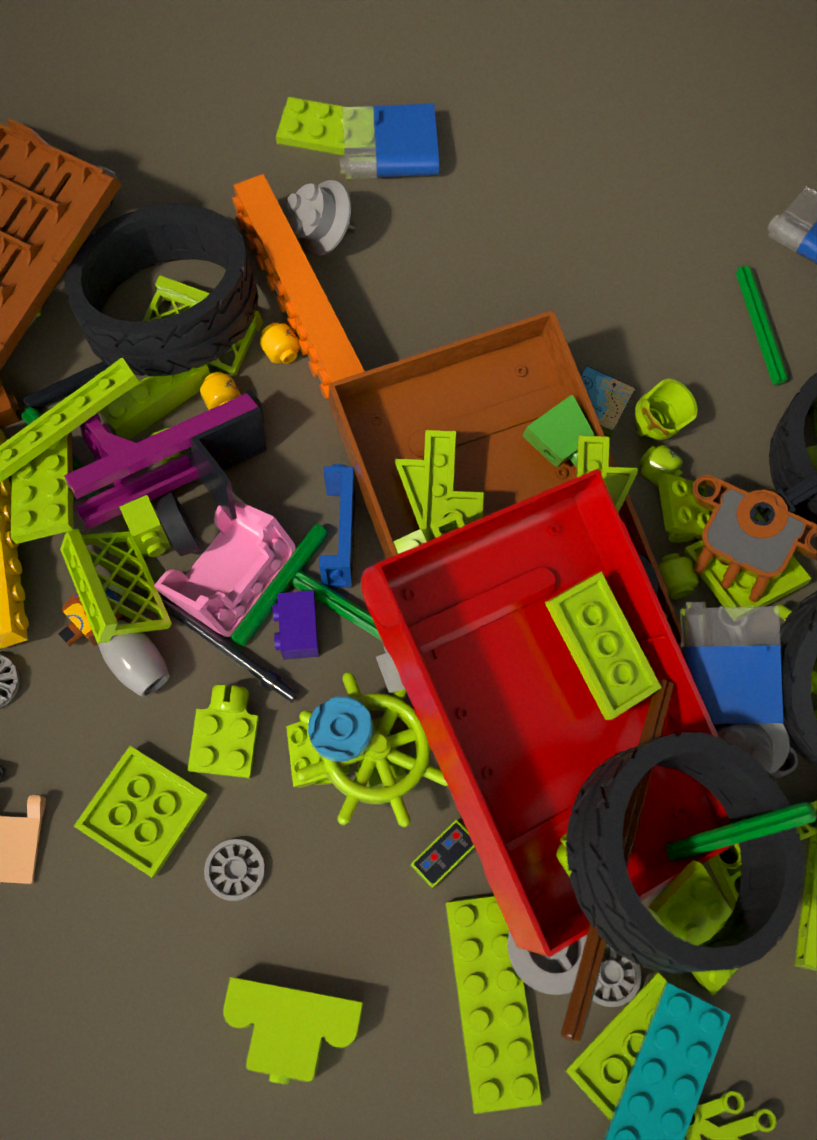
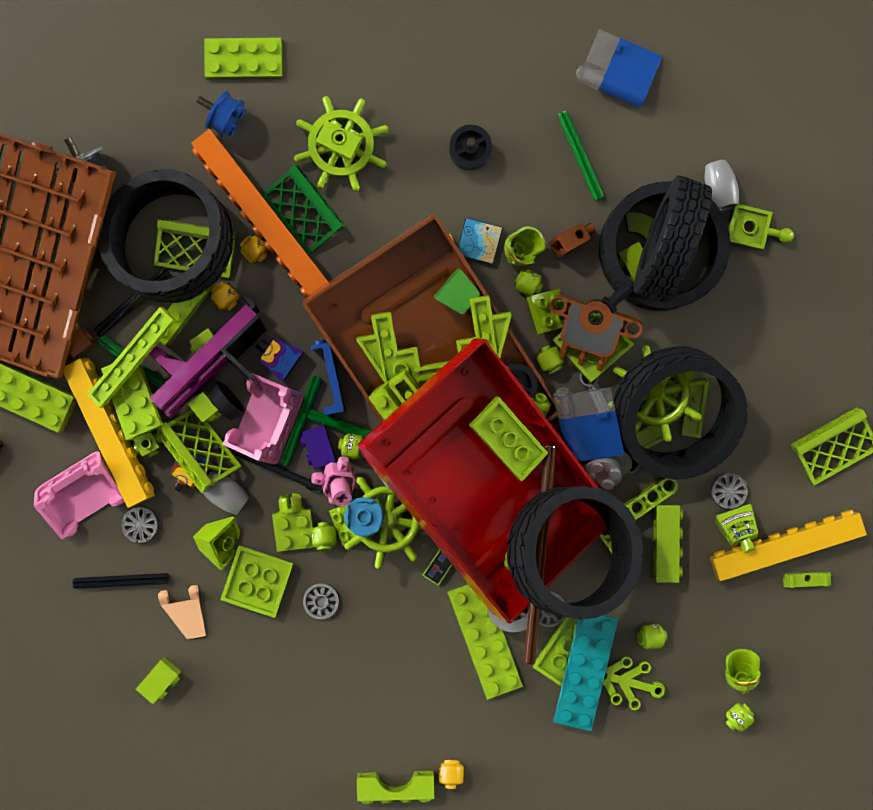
camera: 10 degrees left, 20 degrees up
(43, 560) = (141, 444): none -> lime brick
(101, 732) = (217, 541): none -> lime slope
(267, 763) = (324, 537): none -> lime head
(275, 486) = (279, 357): none -> torso
(288, 169) = (223, 114): none -> blue wheel
(289, 1027) = (375, 678): lime brick -> none
(312, 676) = (337, 481): none -> bright pink piece
(320, 215) = (257, 146): light grey piece -> none
(349, 635) = (349, 446): none -> lime head
(383, 305) = (317, 201): none -> green fence
(390, 141) = (289, 63): blue door -> none
(435, 230) = (341, 142): none -> lime piece
(609, 279) = (470, 147): none -> black wheel
(694, 912) = (586, 572): lime plate -> none
(732, 419) = (571, 239): none -> dark orange torso
(741, 831) = (605, 530): green axle -> none
(784, 1065) = (651, 636): none -> lime head

